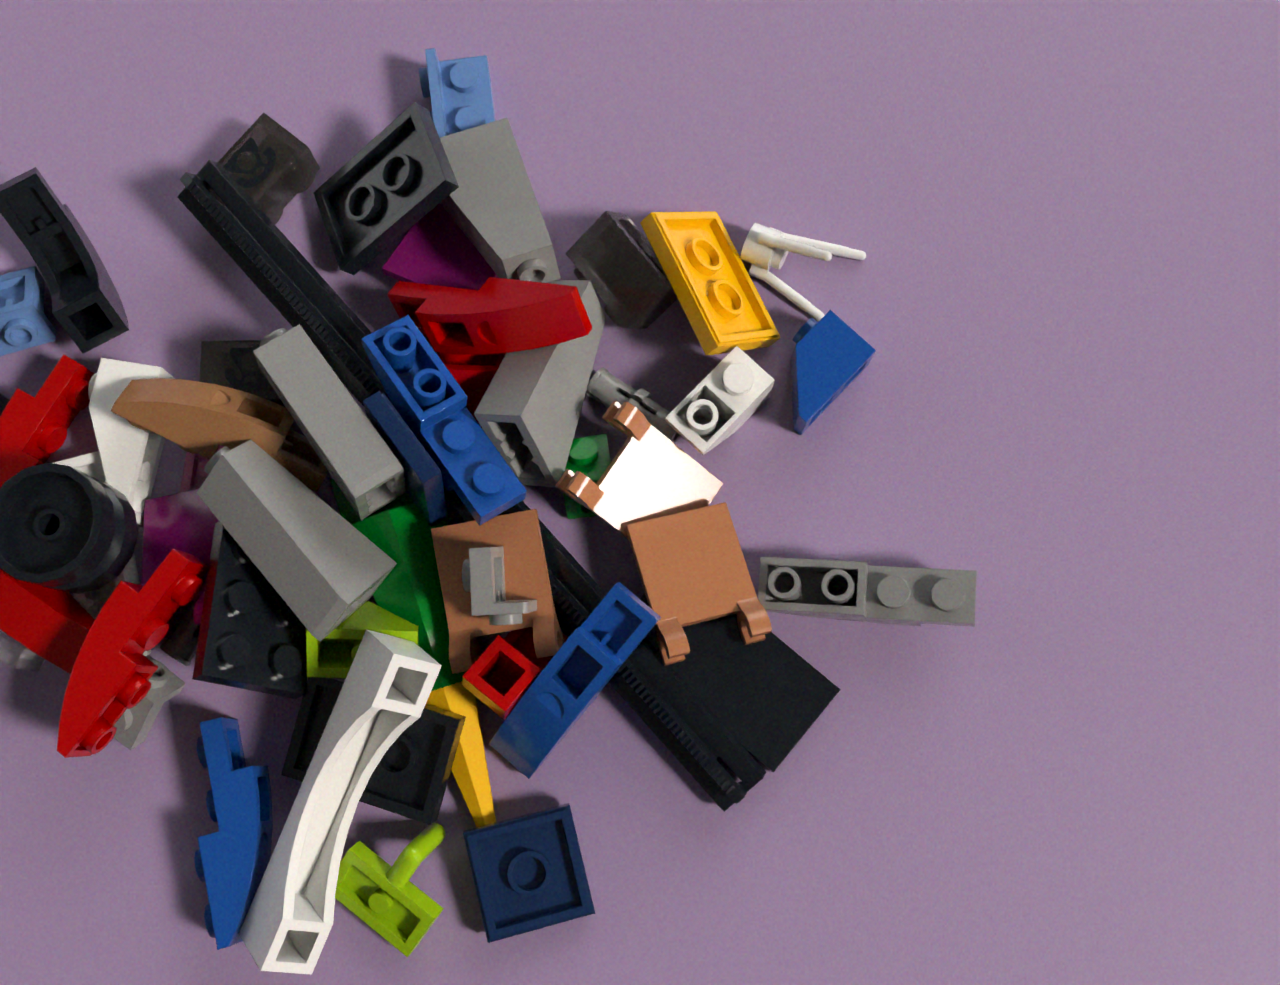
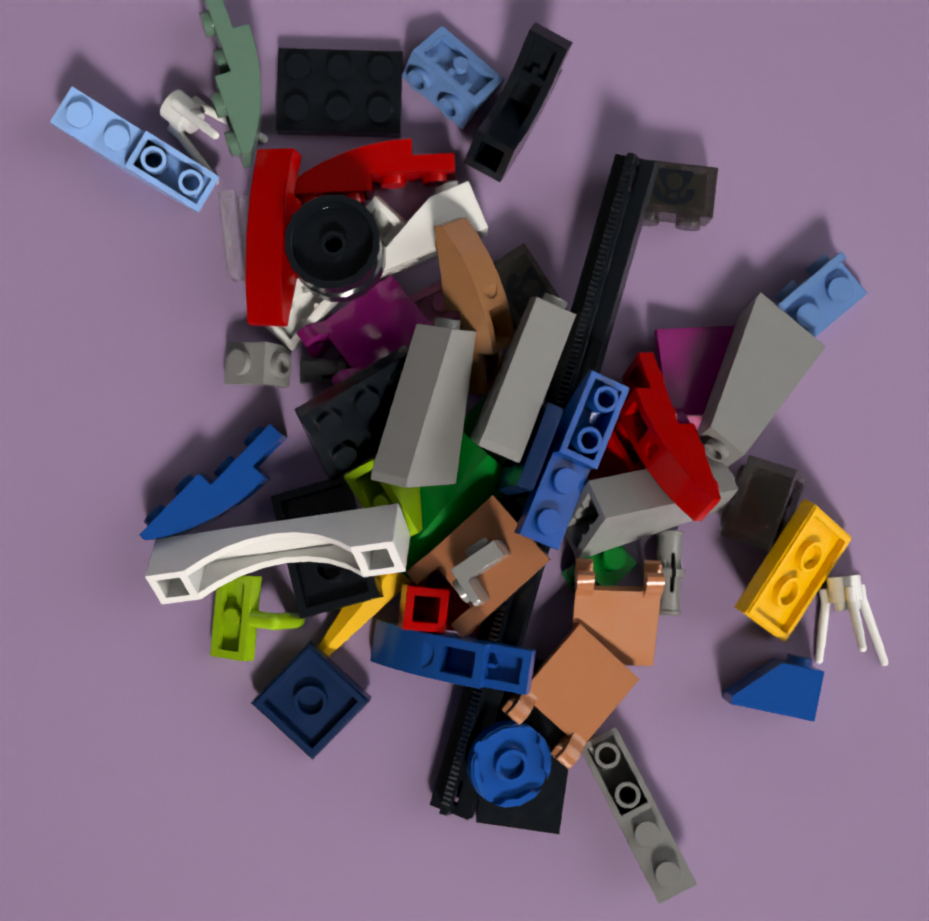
camera: 55 degrees right, 10 degrees up
(111, 663) = (268, 345): red slope -> none
(385, 189) = (715, 296): black plate -> none
(721, 401) = (708, 634): white slope -> none
(728, 693) = (508, 763): none -> blue tile

